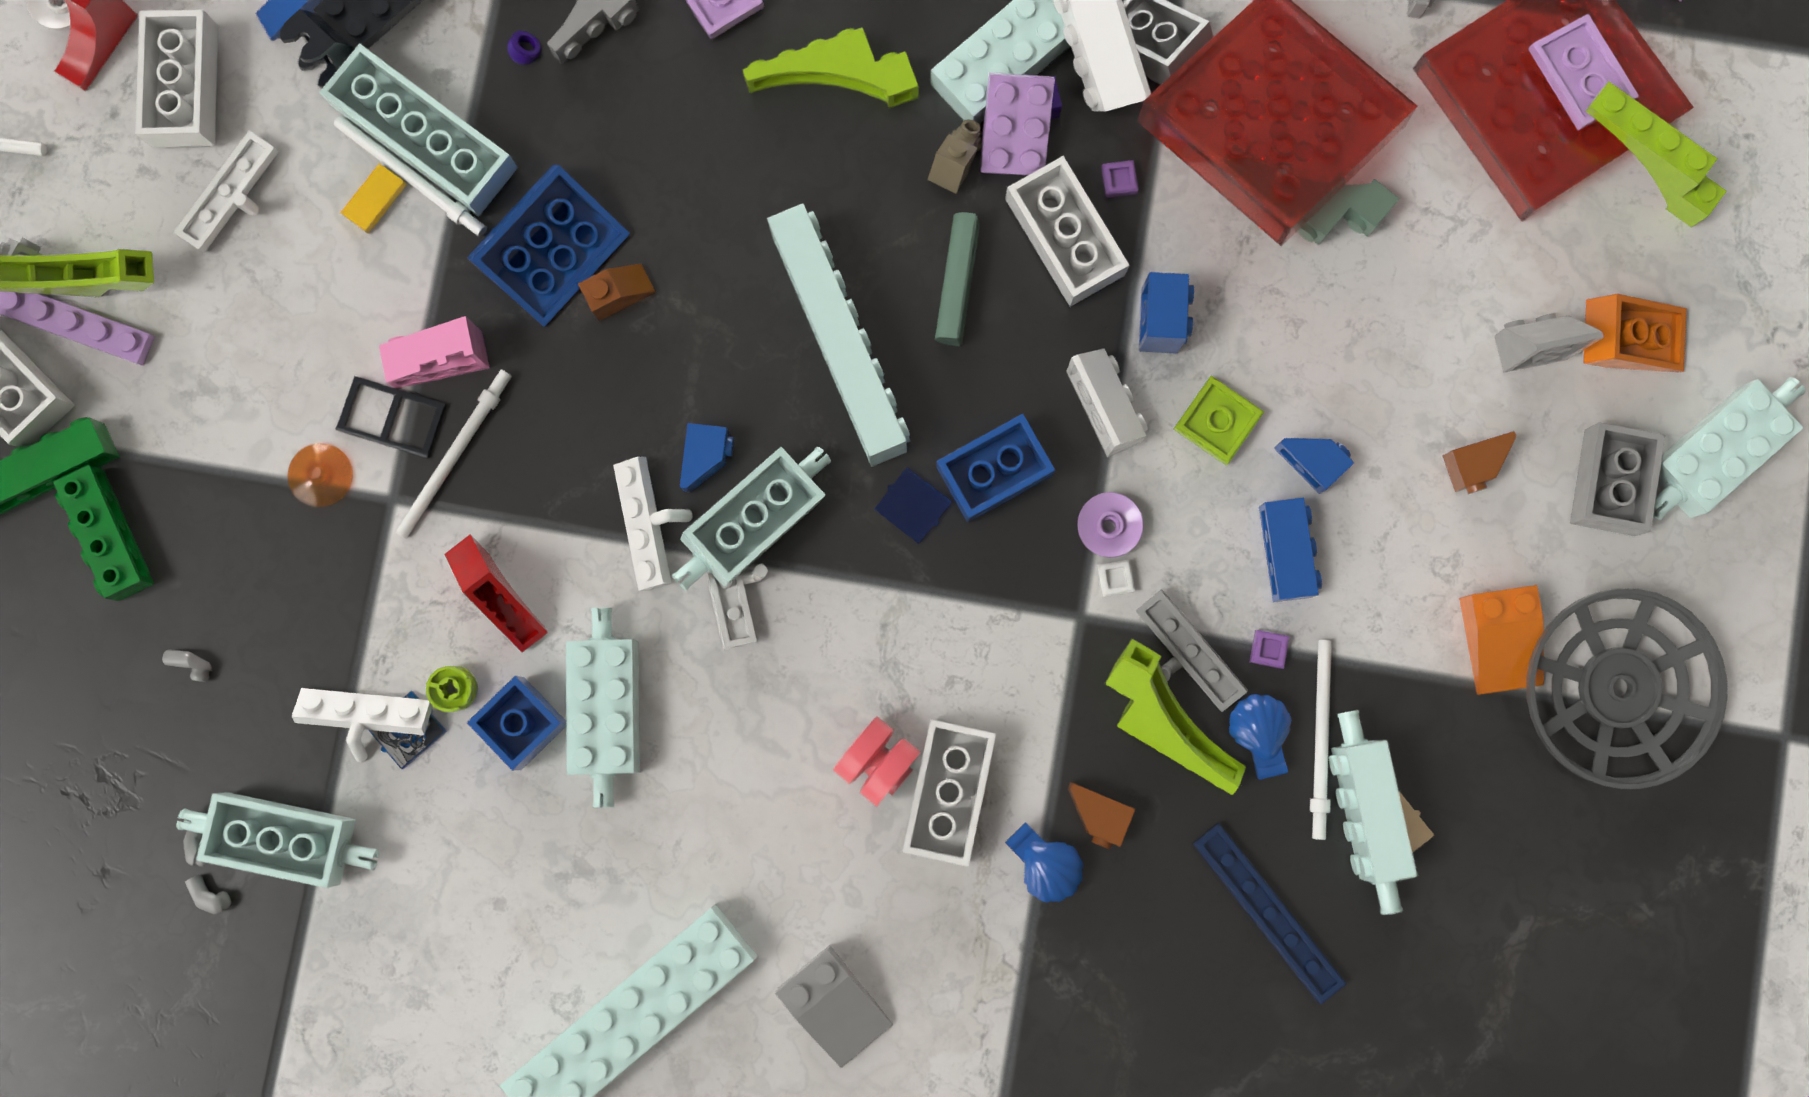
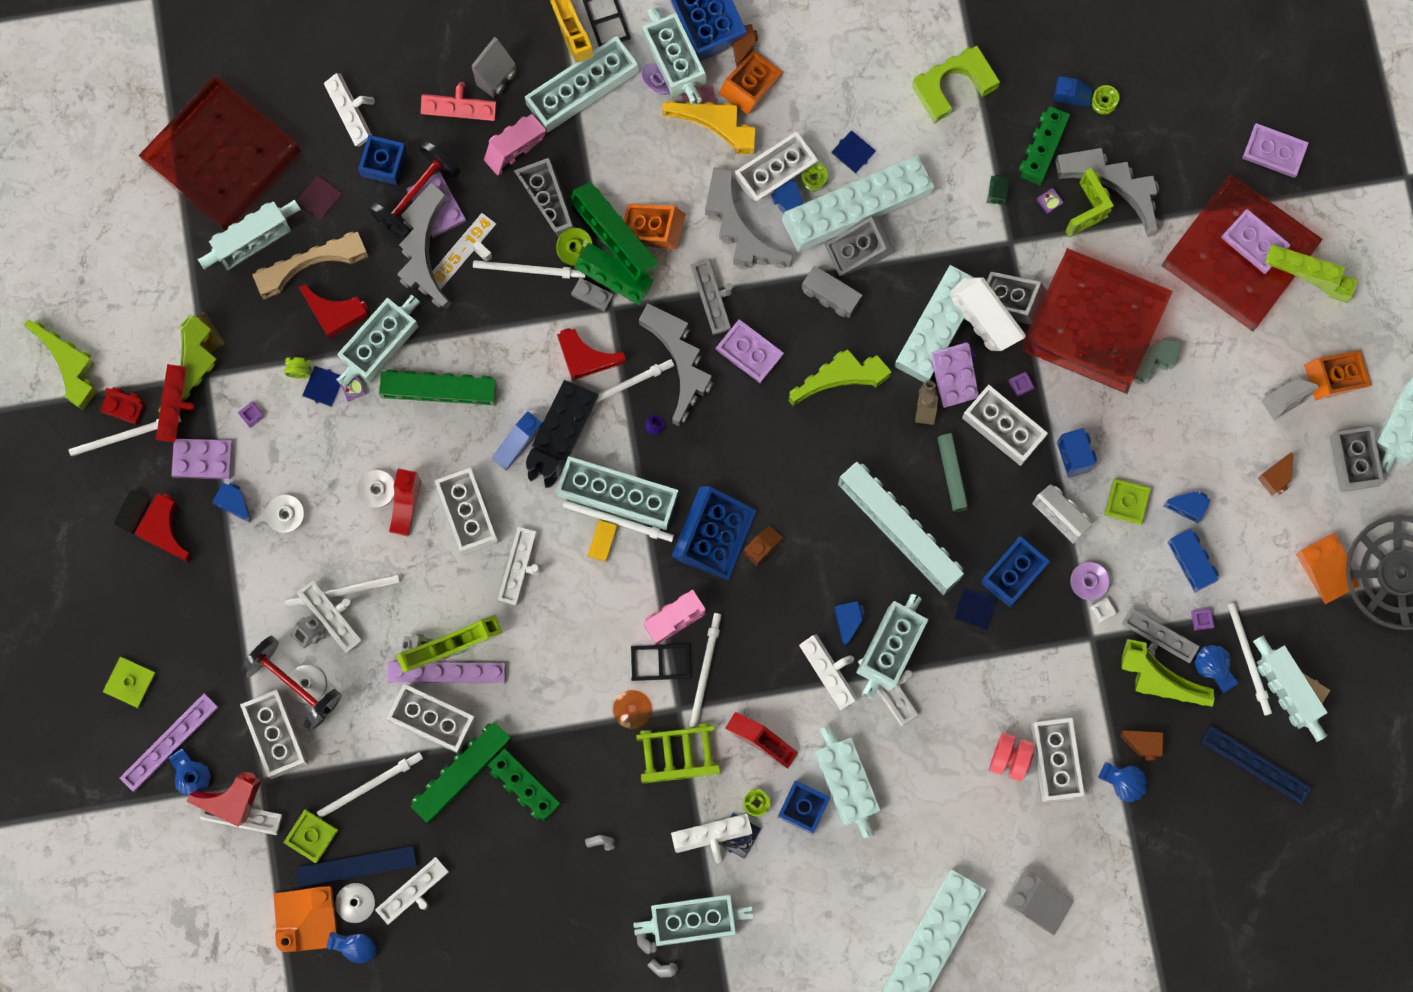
camera: 25 degrees left, 5 degrees down
(367, 598) = (670, 772): none -> lime fence

